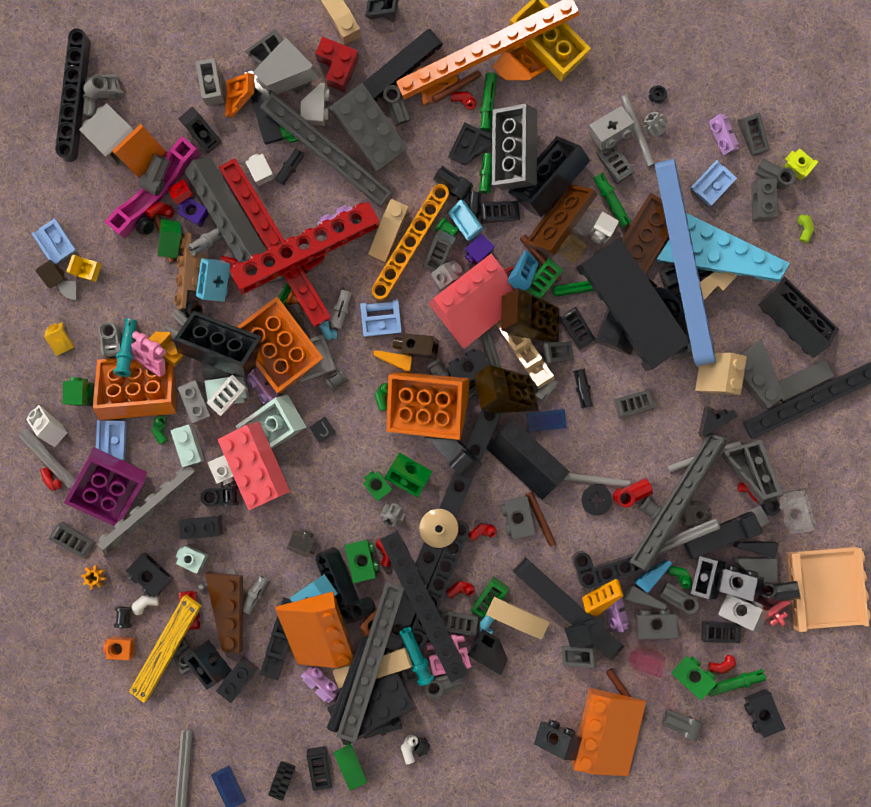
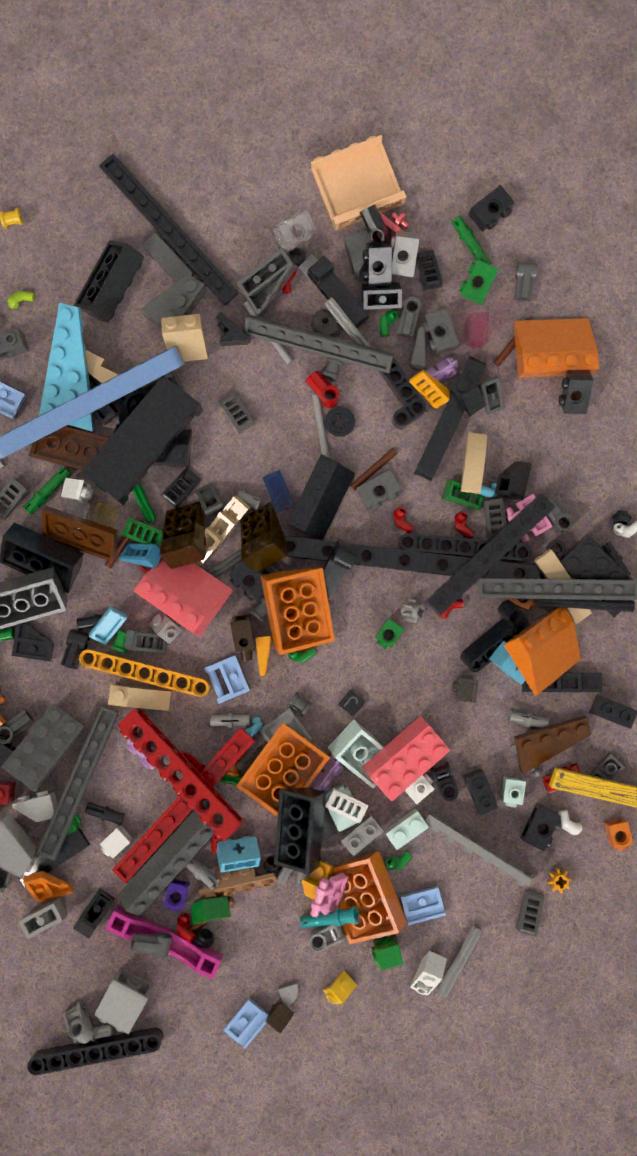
camera: 100 degrees left, 0 degrees up
(48, 480) = (479, 954): red arm -> none
(84, 268) = (263, 985): yellow bracket -> none
(105, 487) = (470, 896): magenta slope -> none
(123, 617) = (588, 840): black bush -> none
(138, 149) = (132, 968): orange slope -> none
(180, 191) = (161, 913): red bracket -> none
(207, 664) = (608, 744): black brick -> none
(326, 689) = (595, 624): lavender hinge -> none
(361, 572) = (476, 626): green brick -> none
(408, 474) = (370, 607): green brick -> none
(419, 664) = (545, 543): teal pin -> none
(431, 520) = (405, 570): tan dish -> none
(478, 249) = (133, 604): dark purple brick -> none
(484, 212) = (89, 611): black slope -> none
(486, 174) = (56, 619): green pin -> none
(583, 388) = (237, 465): black pin -> none
(650, 578) = (401, 351): dark azure slope -> none
(724, 667) = (460, 257): red arm -> none
(765, 548) = (338, 255): black slope -> none

